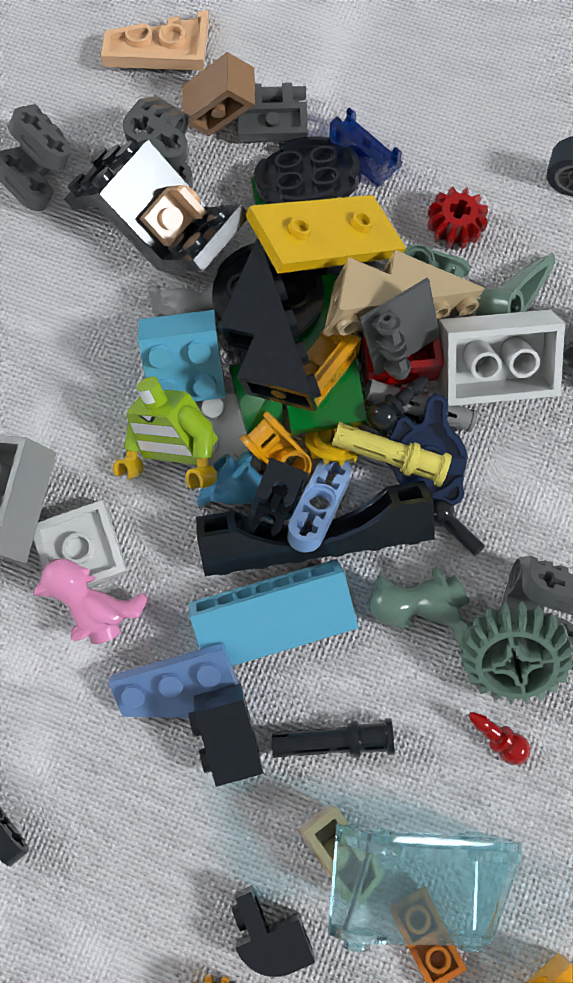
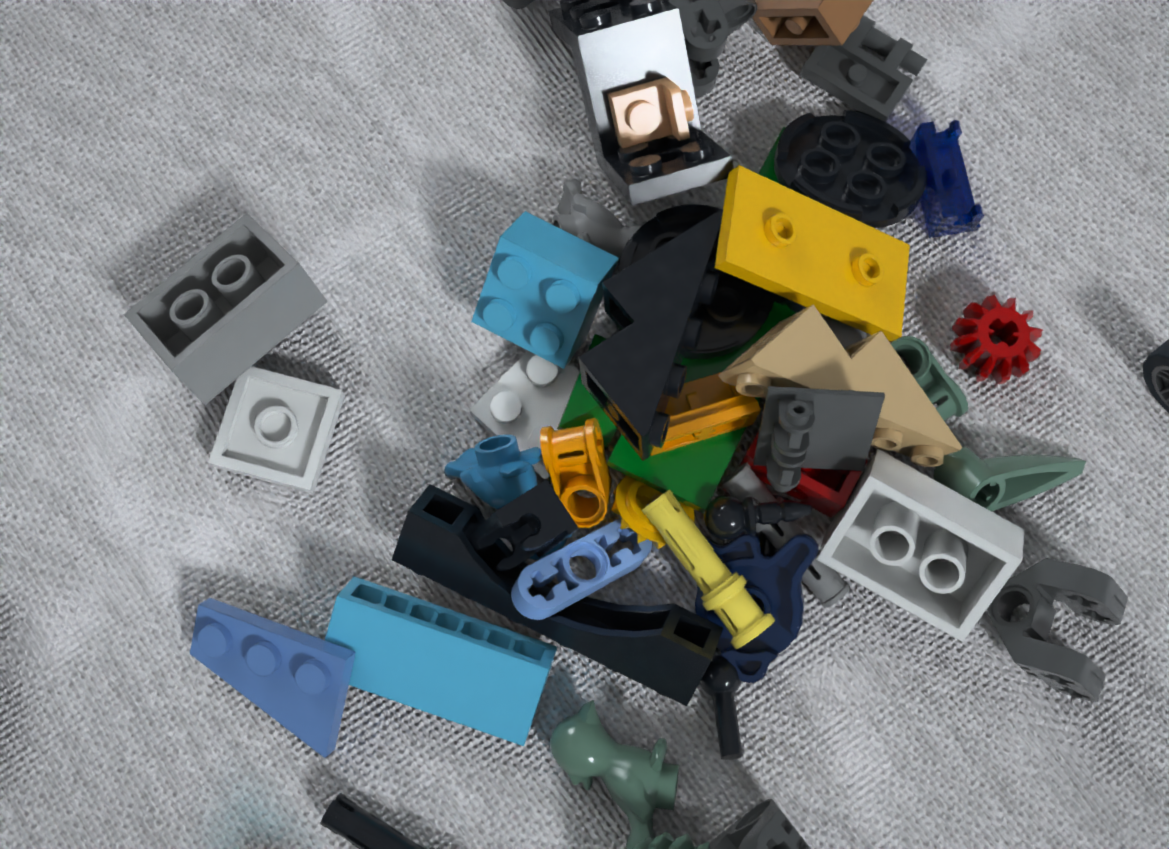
camera: 30 degrees right, 0 degrees up
(92, 610) = (240, 510): bright pink animal -> none
(168, 428) = (469, 362): lime torso -> none
(227, 735) = (283, 760): black brick -> none

